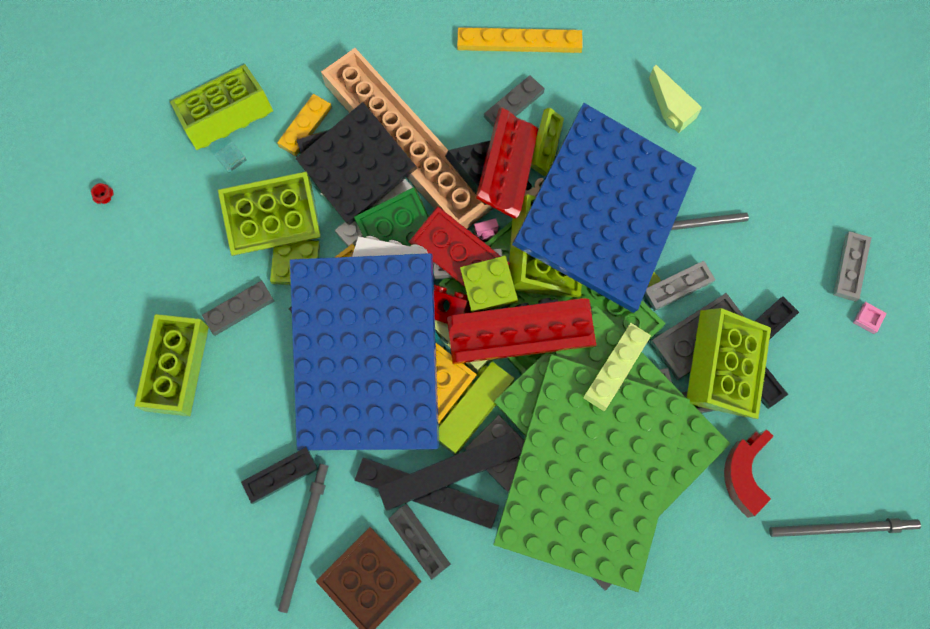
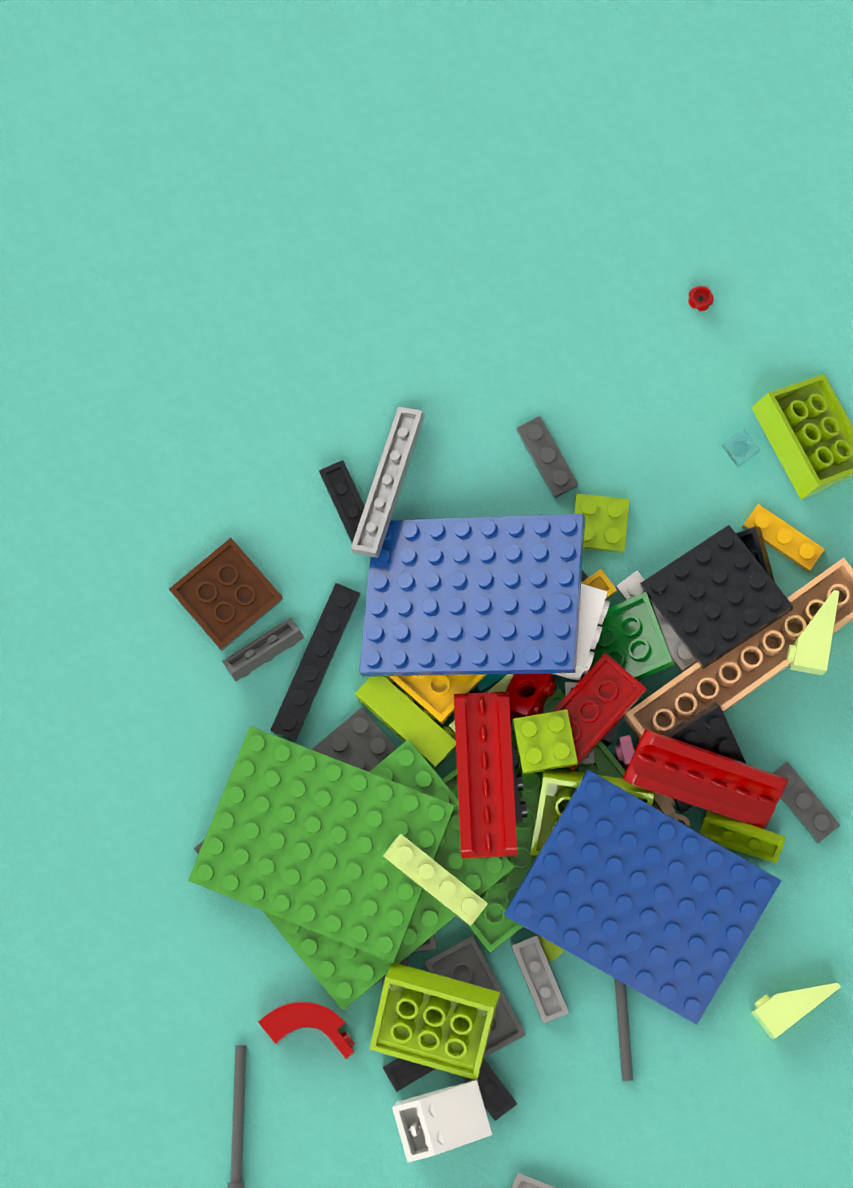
camera: 90 degrees right, 5 degrees up
(172, 365) = (479, 384): lime brick -> none
(262, 438) = (388, 482): none -> light grey plate
(269, 213) = (658, 494): lime slope -> none
(317, 488) = (328, 541): dark grey bar -> none
(390, 84) = (813, 646): none -> yellowish green slope
(449, 471) = (335, 687): black tile -> none
(810, 354) = (441, 1120): none -> white slope

